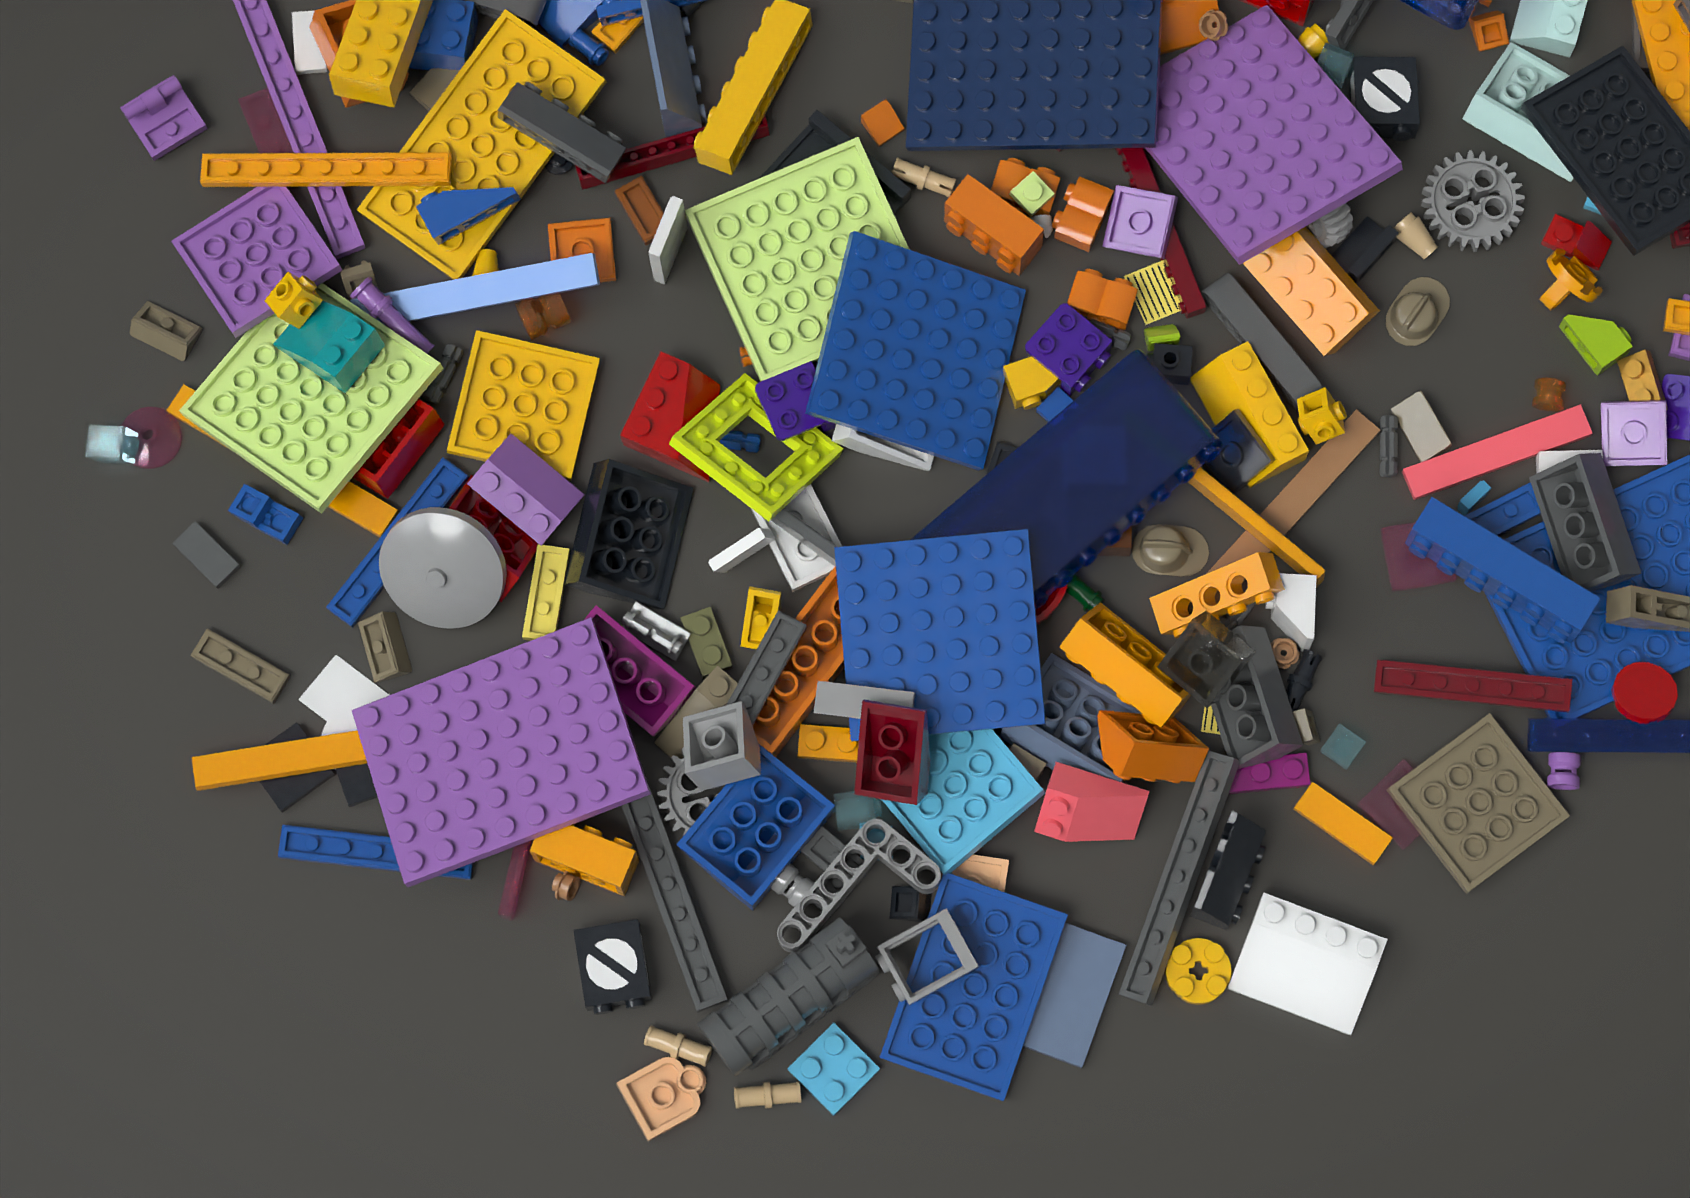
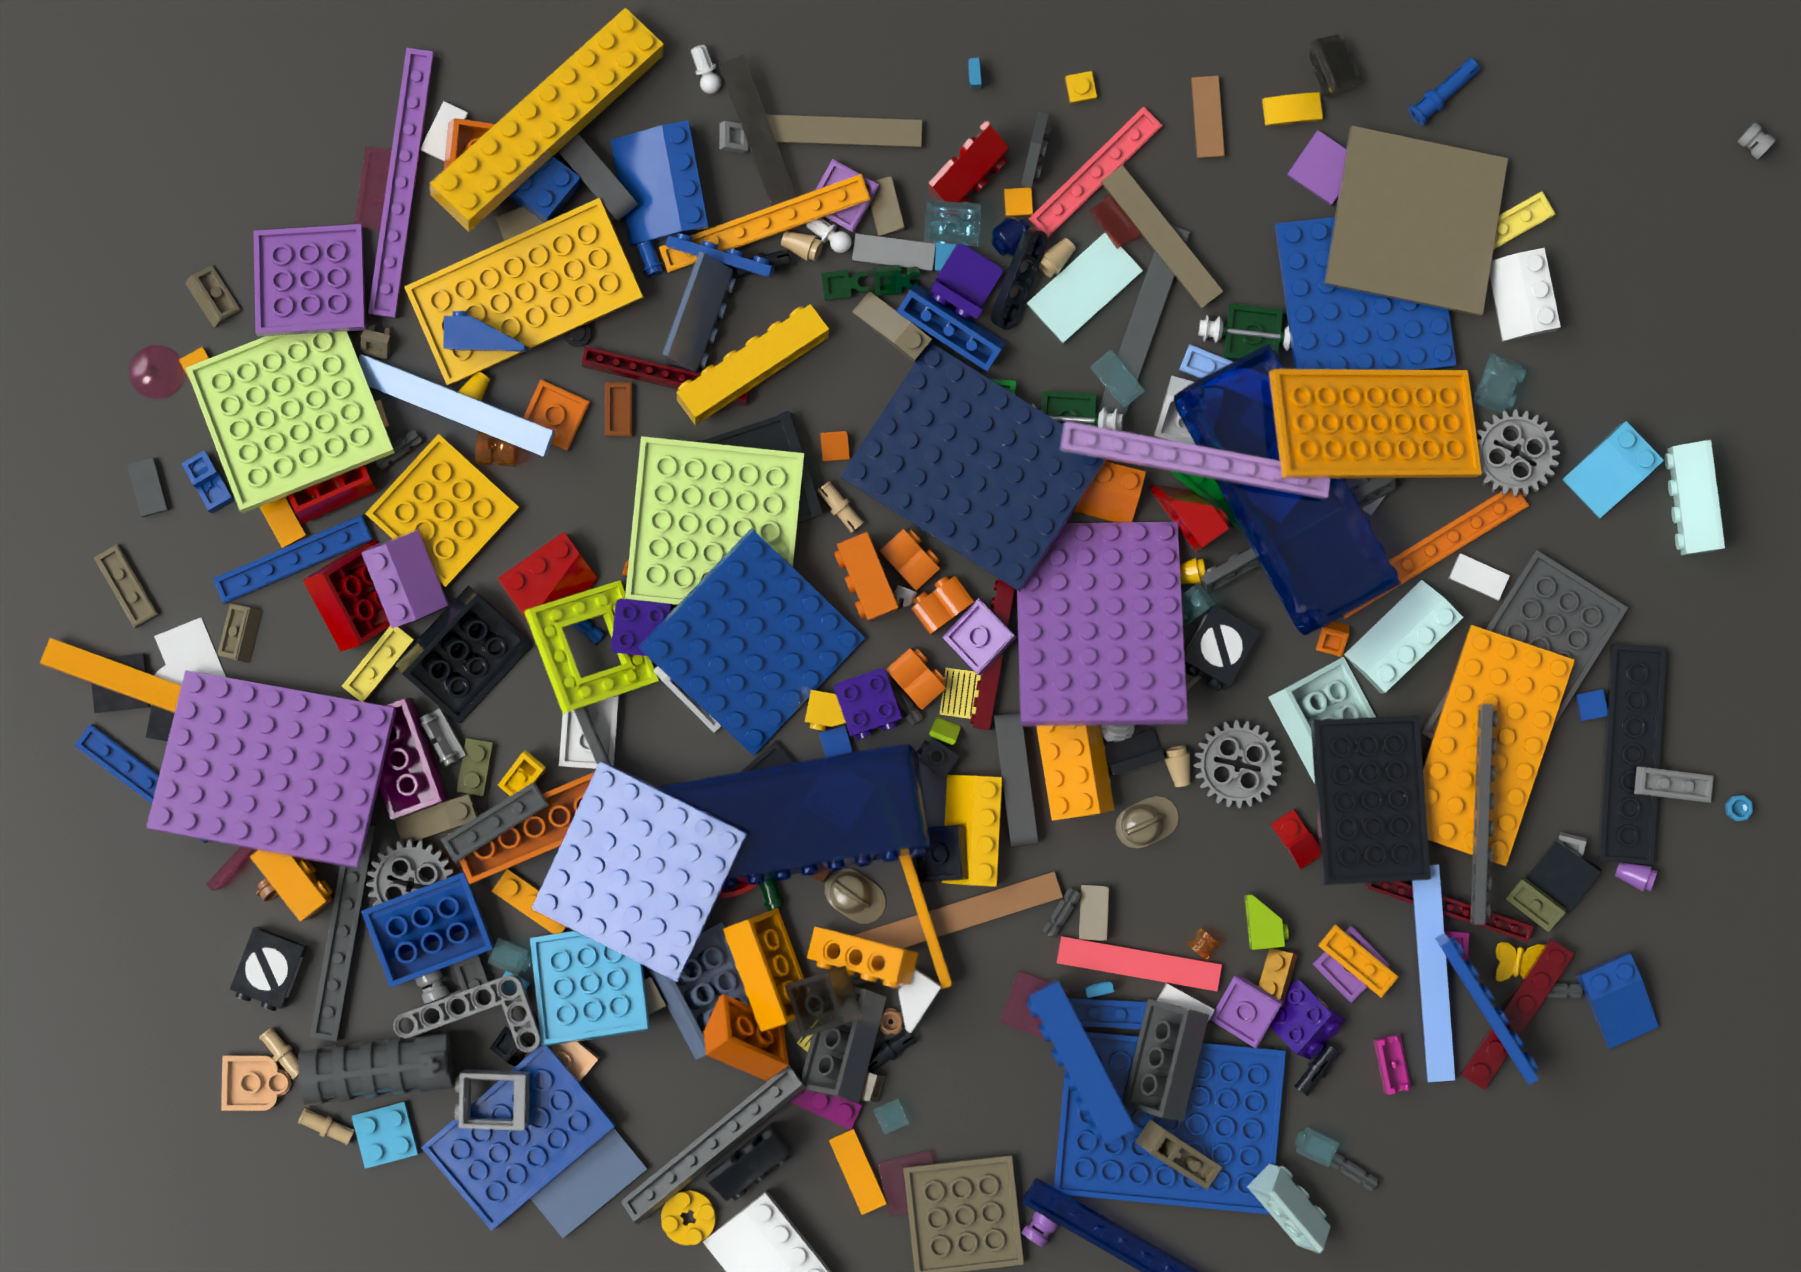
camera: 25 degrees right, 10 degrees up
(112, 444) = (122, 364): clear light blue brick -> none
(163, 117) = (301, 129): medium lavender plate -> none
(294, 299) = (312, 337): yellow brick -> none
(326, 169) = (397, 243): light orange tile -> none
(332, 345) = (321, 384): teal slope -> none
(382, 308) = (378, 378): medium lavender pin -> none
(442, 567) = (308, 604): light grey dish -> none
(562, 132) = (584, 323): dark grey slope -> none
(668, 239) = (616, 450): white tile -> none
(720, 746) = (431, 860): light grey slope -> none
(741, 550) = (538, 715): white tile -> none
(847, 699) = (554, 889): light grey tile -> none
(893, 753) = (552, 940): dark red slope -> none
(1032, 194) = (909, 570): yellowish green plate -> none
(1089, 807) = (676, 1056): coral slope -> none
(1207, 27) = (1124, 517): medium nougat plate -> none
(1321, 416) = (1022, 864): yellow brick -> none
(1473, 686) = (1011, 1129): dark red plate -> none
(1571, 278) = (1272, 867): light orange tile -> none
(1644, 692) = (1131, 1209): red tile -> none

